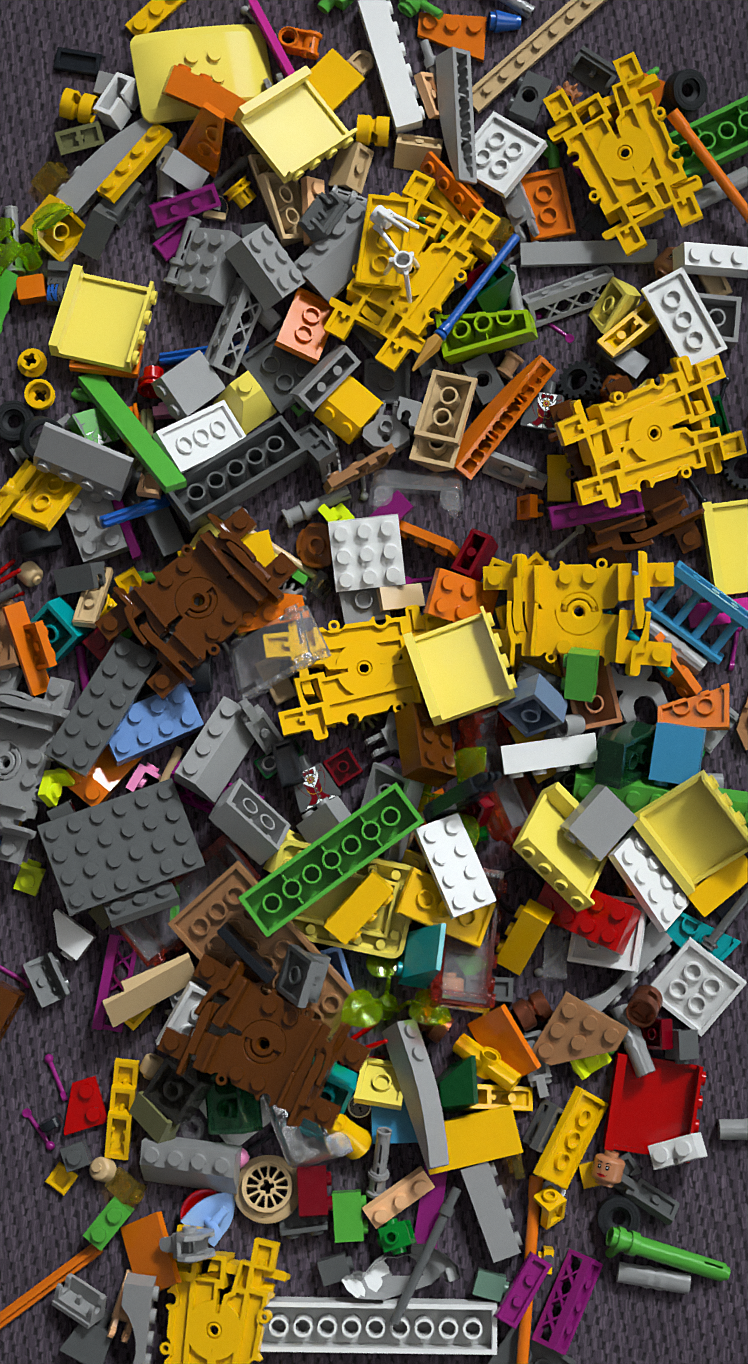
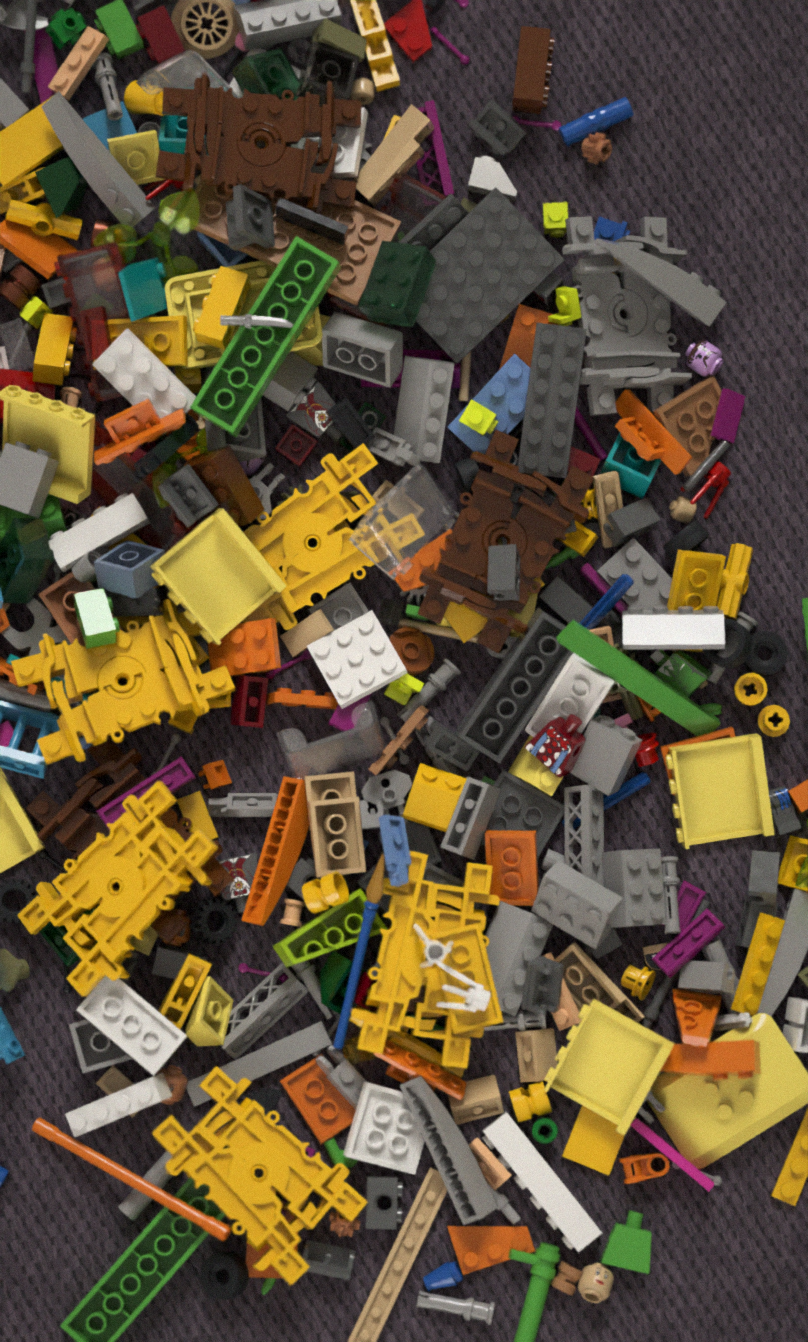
camera: 155 degrees right, 0 degrees up
(139, 778) = (489, 352): bright pink bracket -> none
(172, 716) = (479, 418): none -> neon yellow bracket
(174, 124) = (732, 1021): none -> white axle
(194, 863) = (397, 283): none -> clear green brick
(208, 567) = (504, 572): none -> dark grey hinge
(224, 408) = (558, 744): none -> torso
(340, 876) = (250, 320): none -> light grey piece
(362, 62) = (572, 1173): tan tile -> none
(371, 96) = (550, 1136): none -> green cone
(400, 370) = (395, 848): none -> medium blue hinge
(458, 746) = (187, 495): none -> dark grey bracket
(476, 362) = (325, 892): none -> yellow wheel
(480, 824) = (134, 428): none -> orange bracket
(480, 933) = (95, 331): none -> clear red tile
(527, 981) = (34, 312): none -> neon yellow bracket
(528, 885) = (70, 396): none -> light nougat bush

